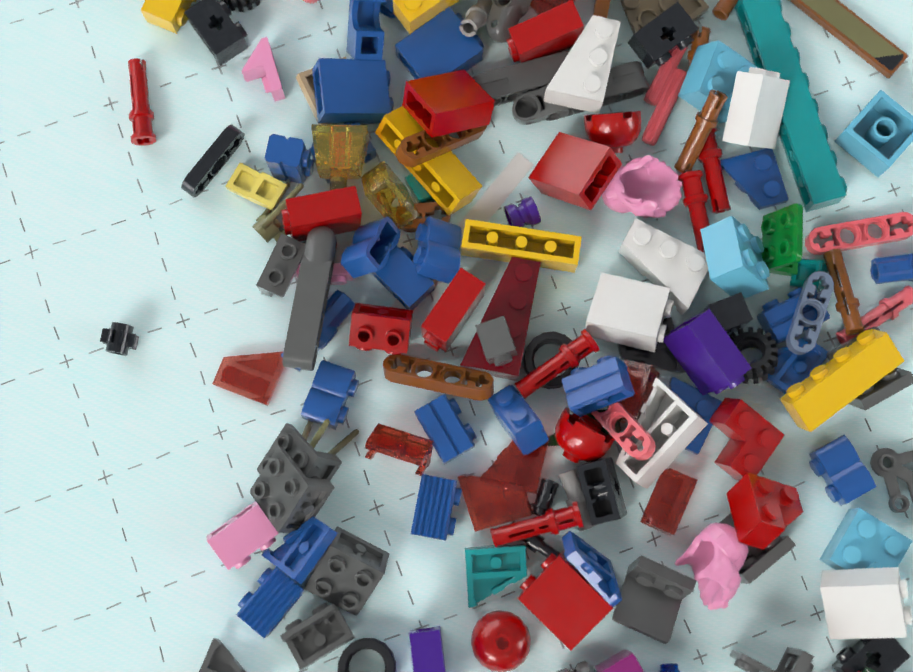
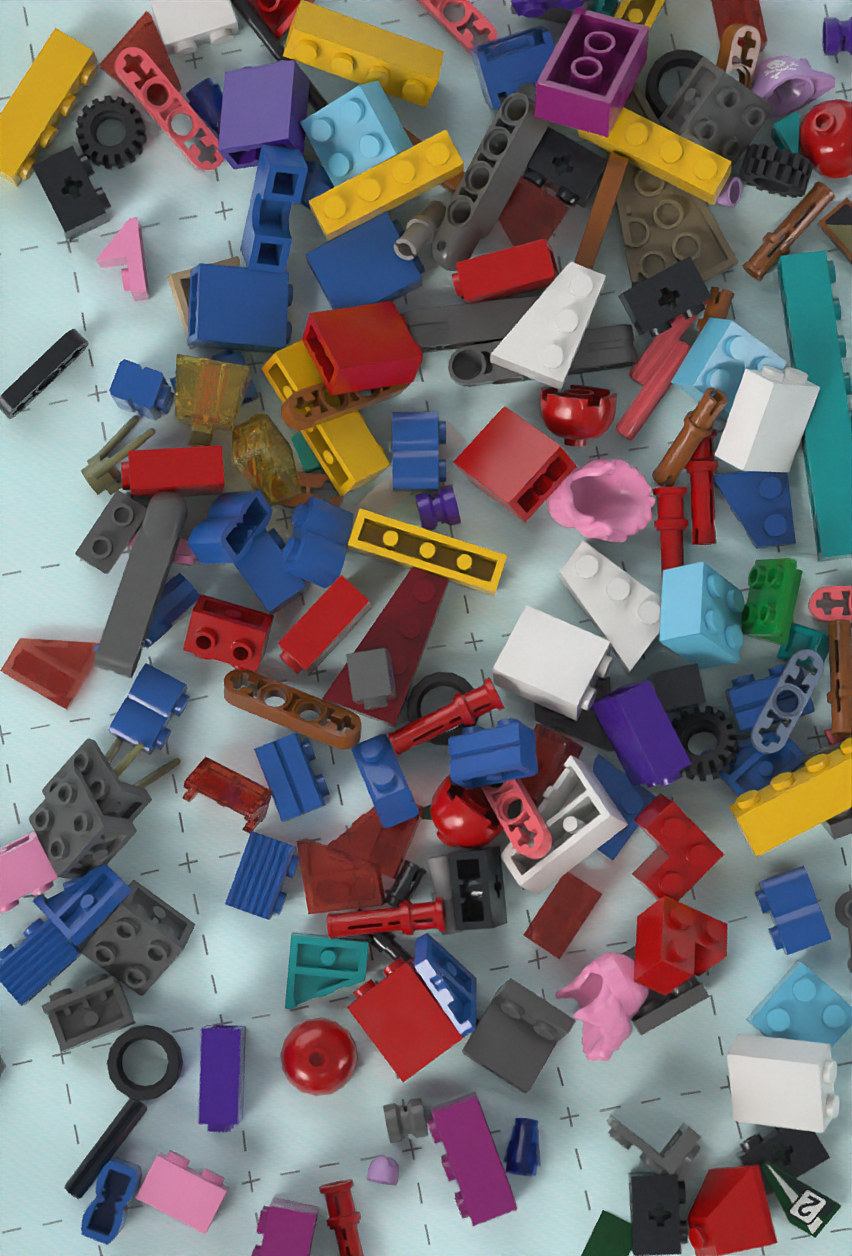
camera: 15 degrees right, 5 degrees up
(256, 186) = (94, 417): light yellow slope -> none
(499, 175) = (416, 451): none -> blue brick

